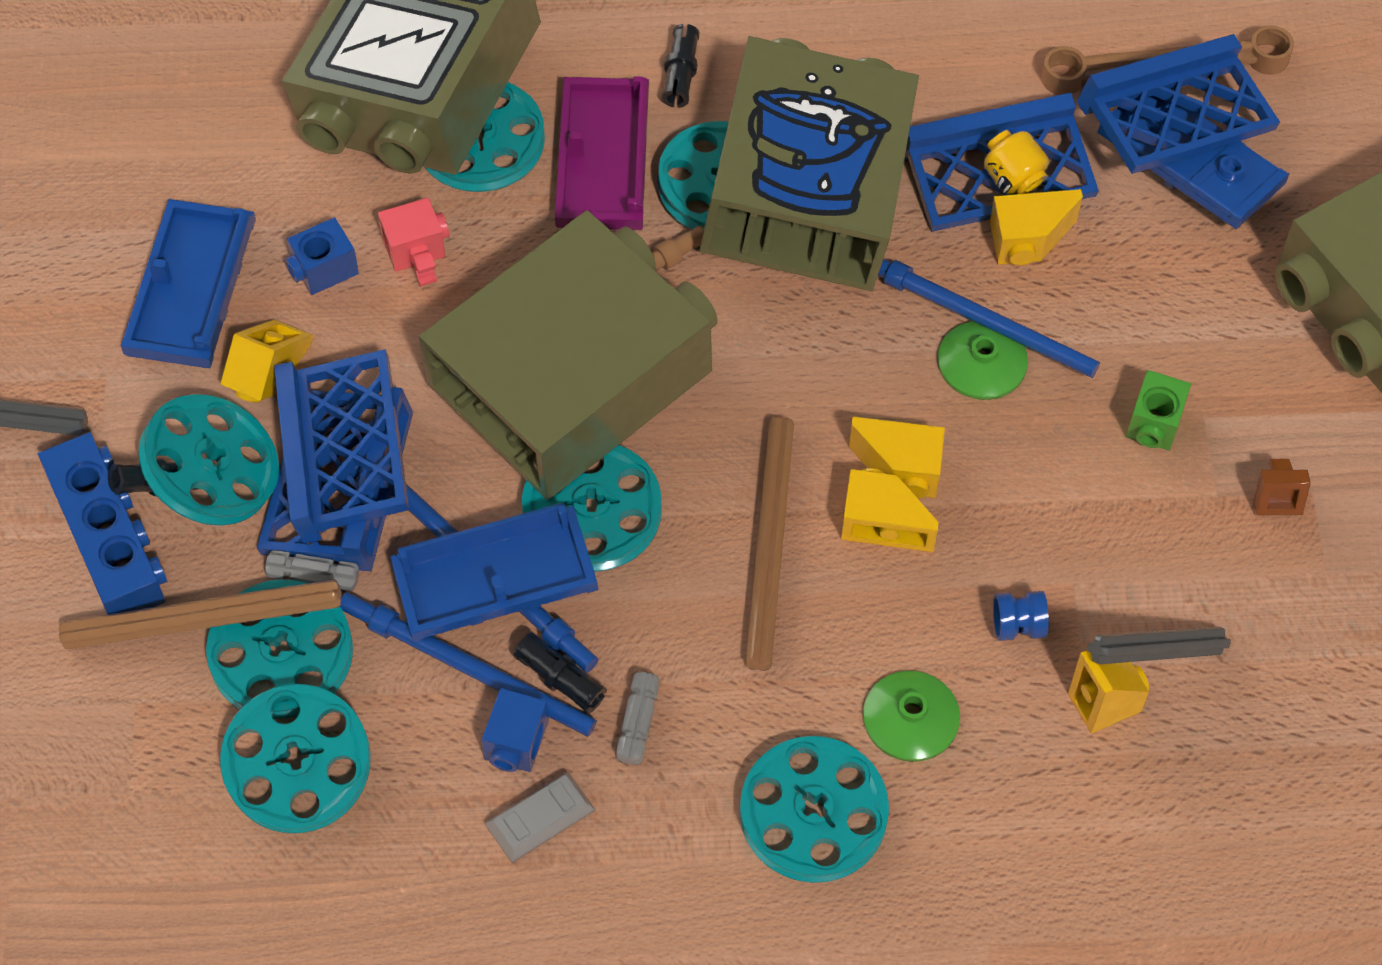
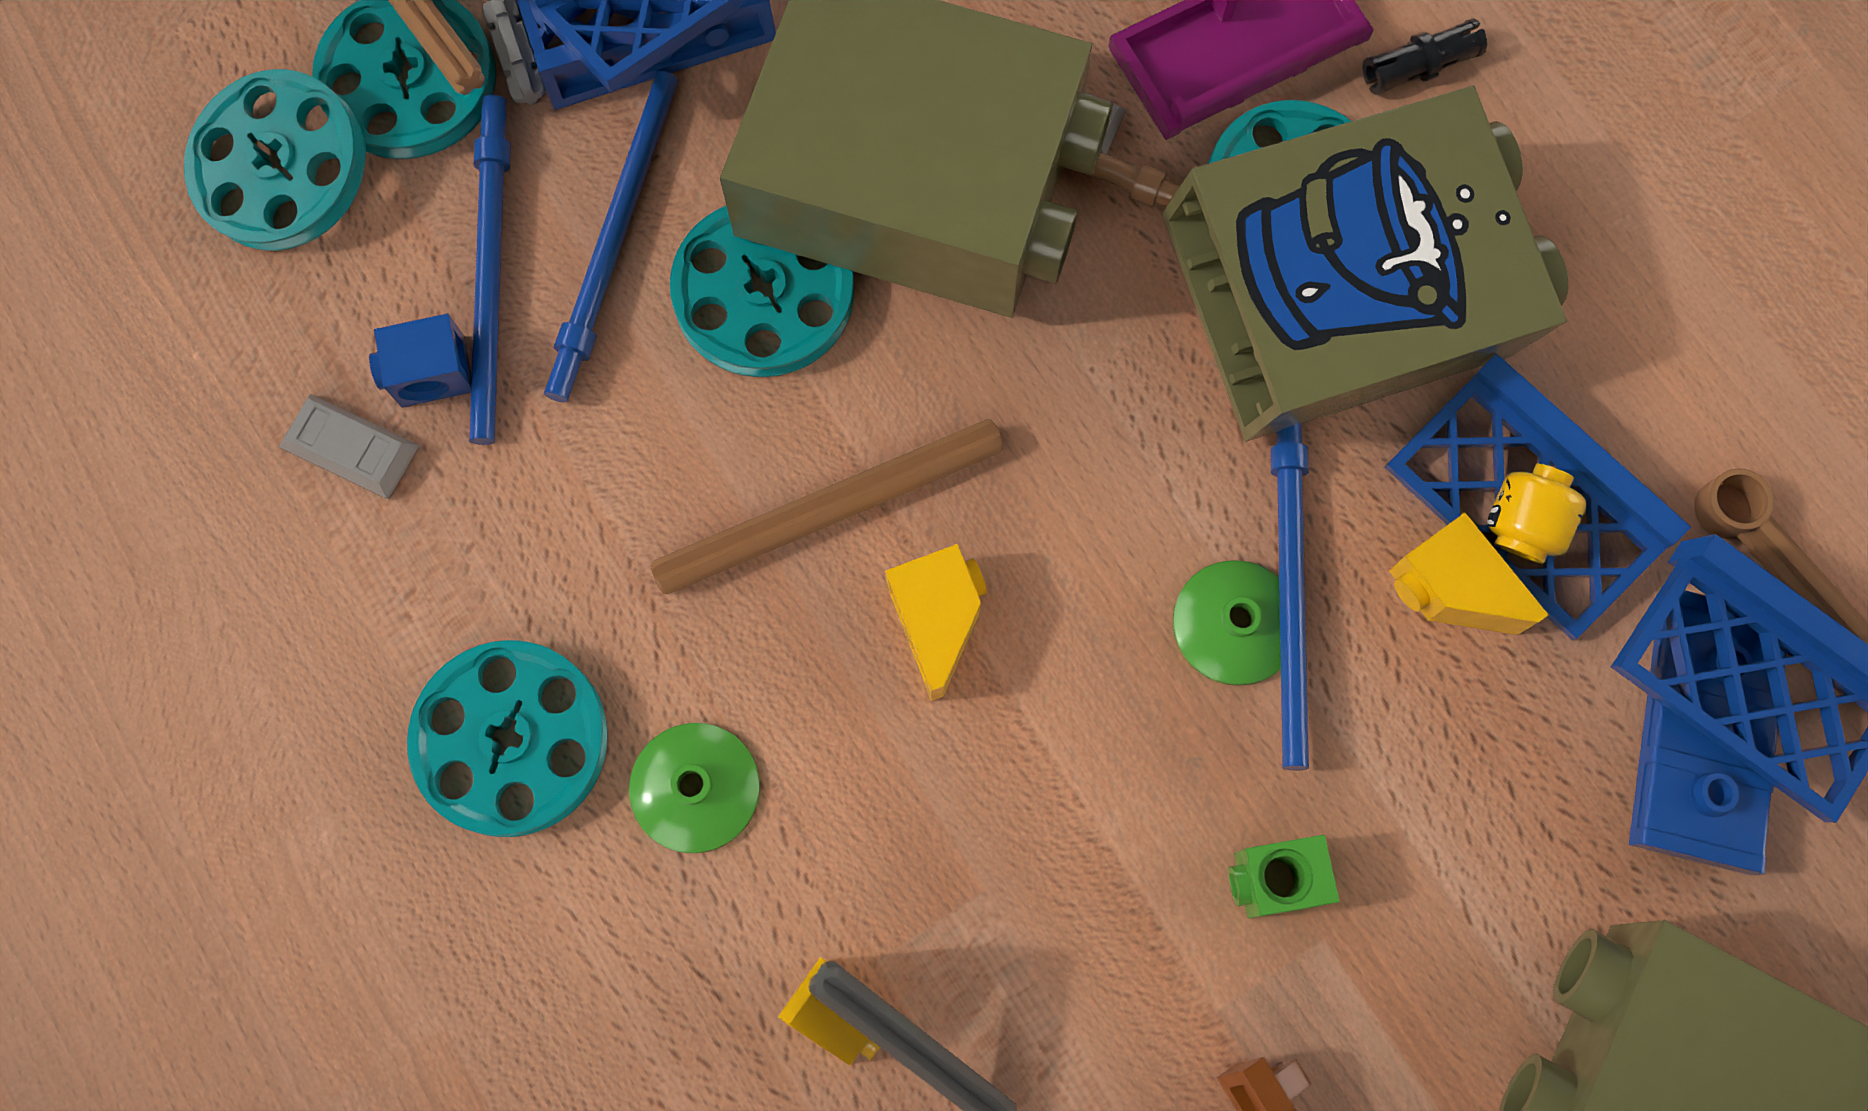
camera: 60 degrees right, 15 degrees up
(493, 570) = (600, 228): blue container -> none
(560, 672) = (524, 369): black pin -> none
(637, 718) = (517, 483): light grey axle -> none
(901, 450) = (1027, 598): yellow slope -> none
(1021, 615) = (888, 852): blue wheel -> none

